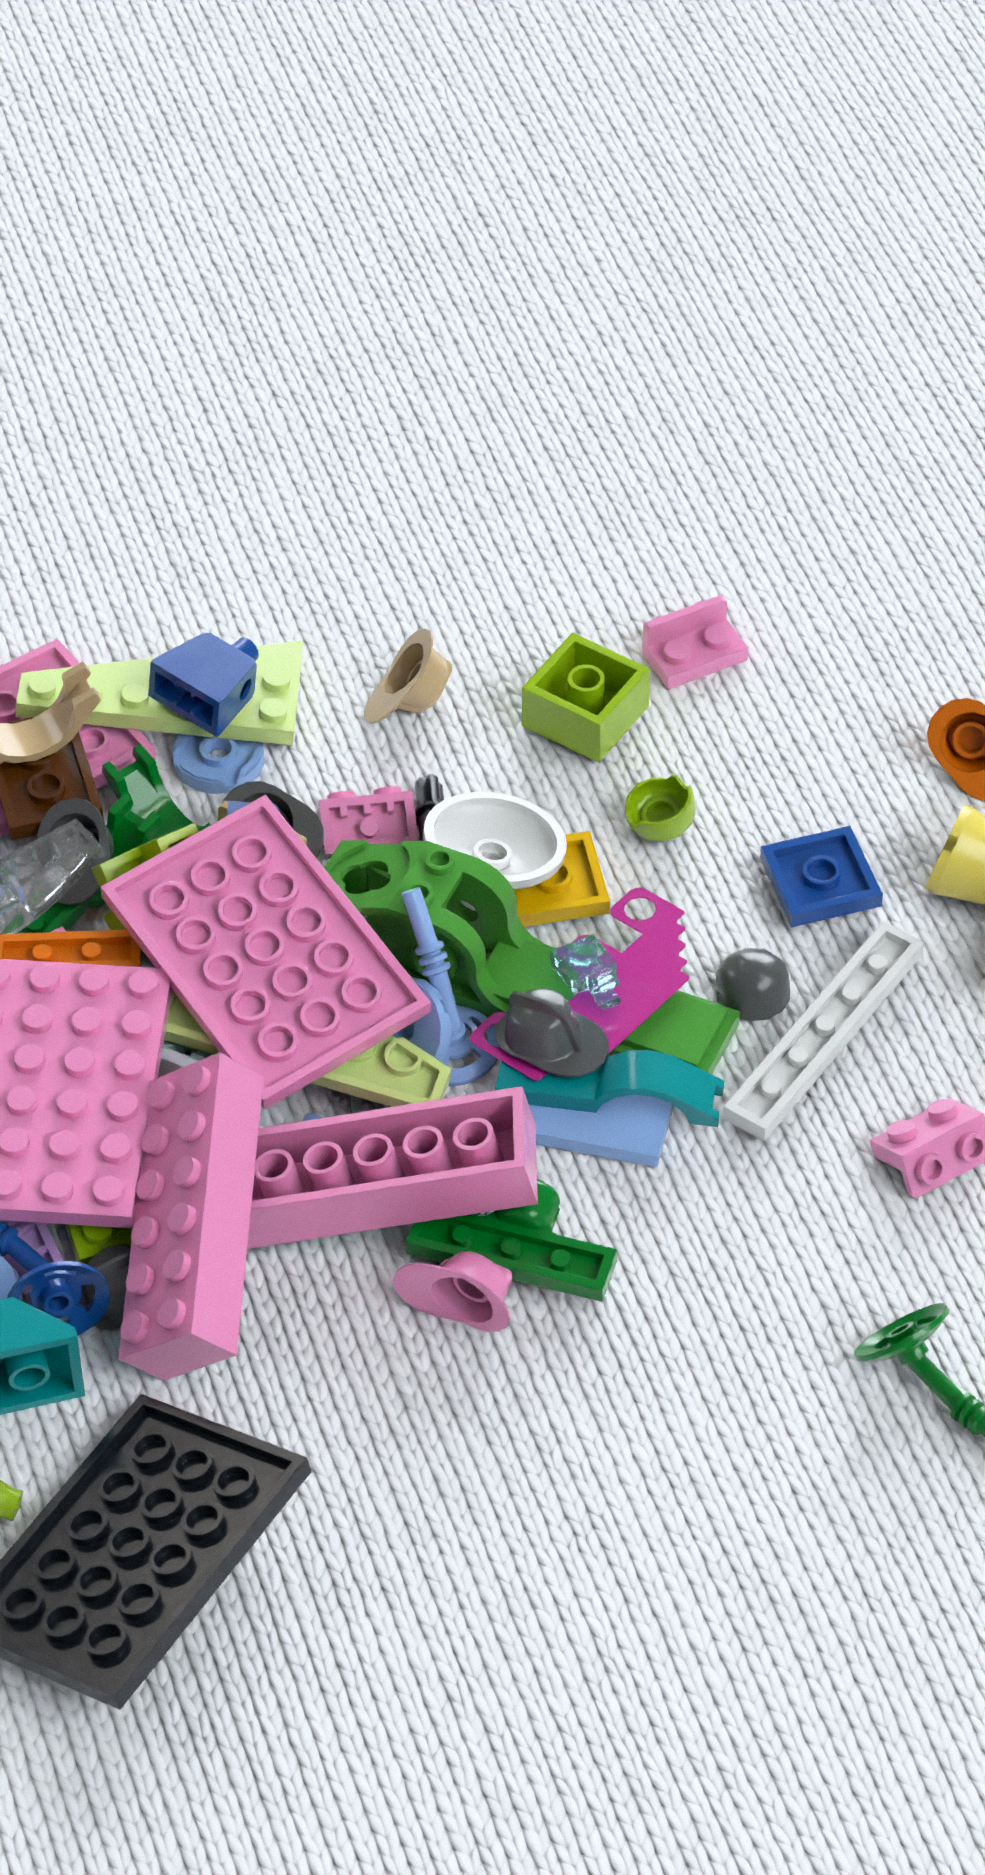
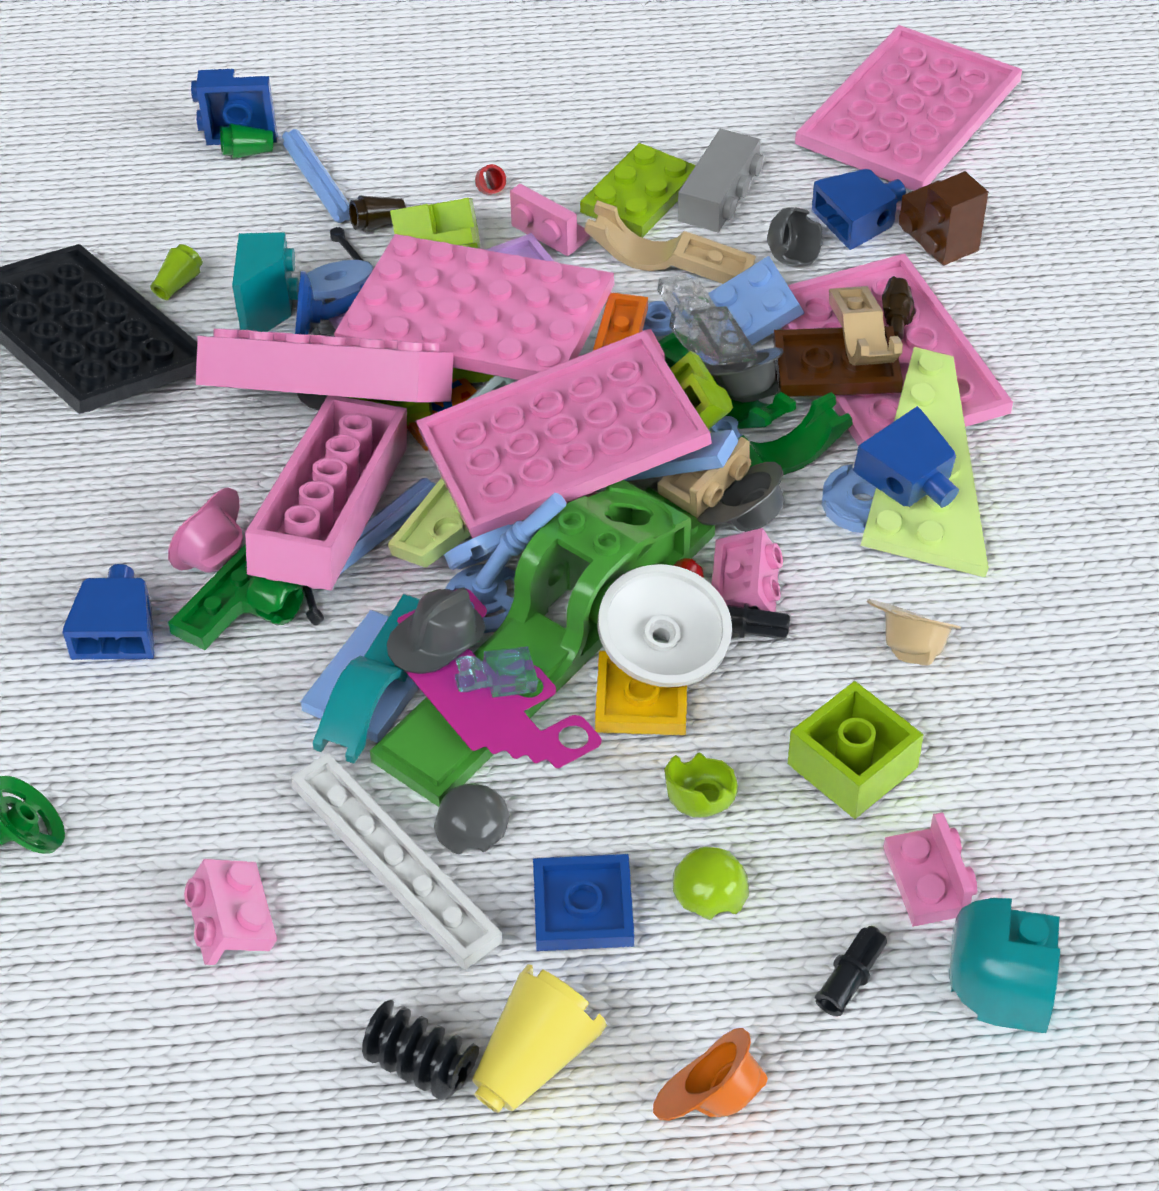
camera: 105 degrees right, 0 degrees up
(598, 1360) = (111, 618): none -> blue torso
(762, 792) = (710, 882): none -> lime hair
(782, 577) = (1006, 964): none -> teal brick
(819, 683) = (851, 971): none -> black axle

